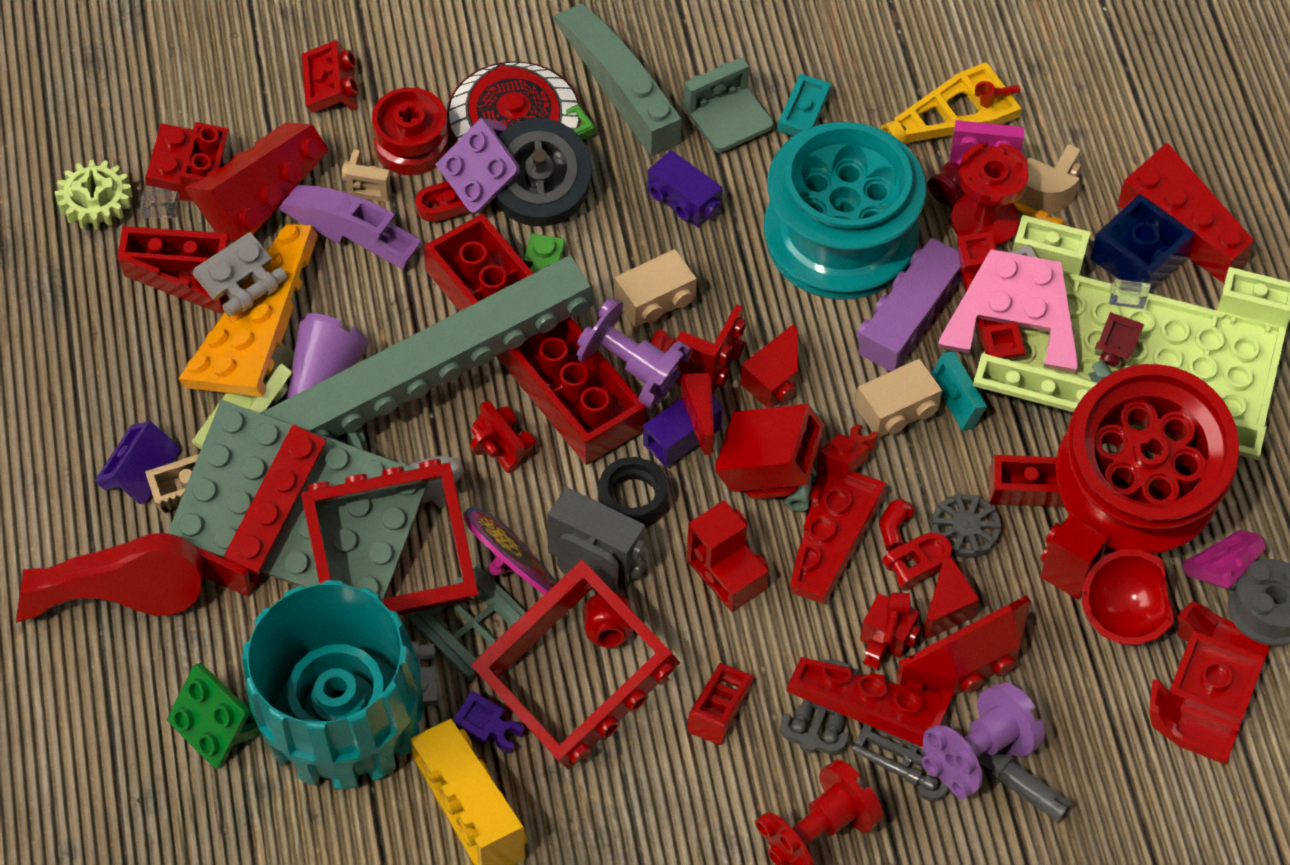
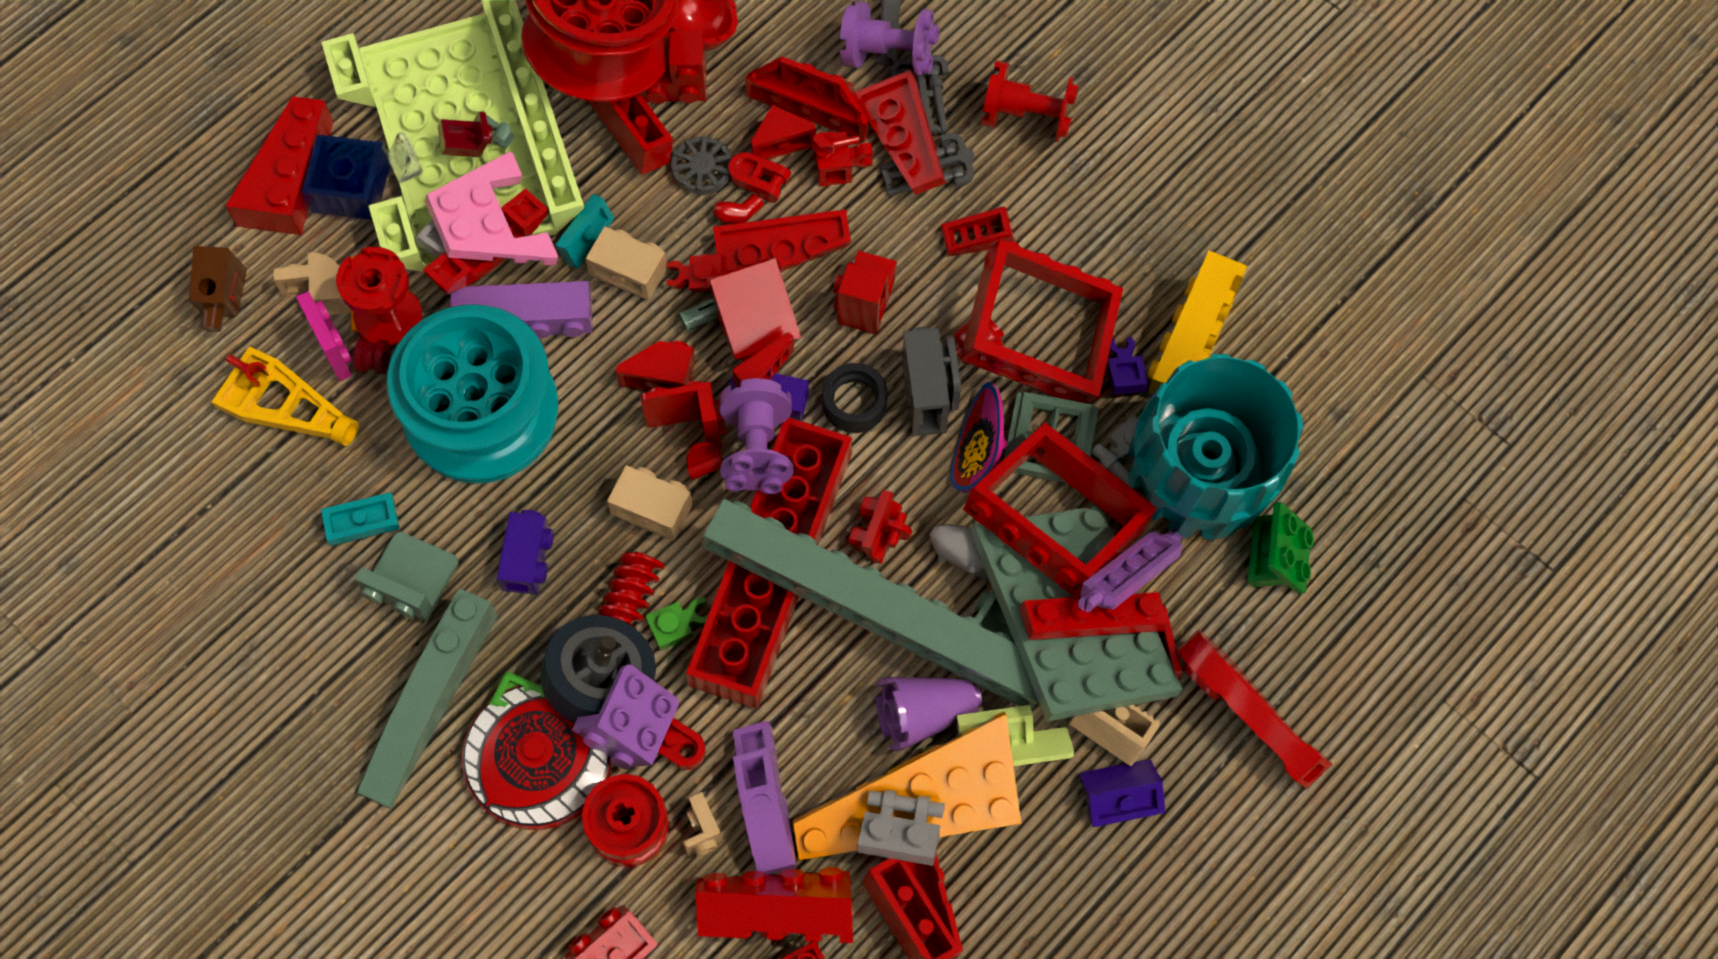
camera: 125 degrees left, 10 degrees up
(285, 530) = (1130, 570): none -> medium lavender plate
(592, 238) = (630, 587): none -> red piece
(1096, 110) = (216, 285): none -> reddish brown torso

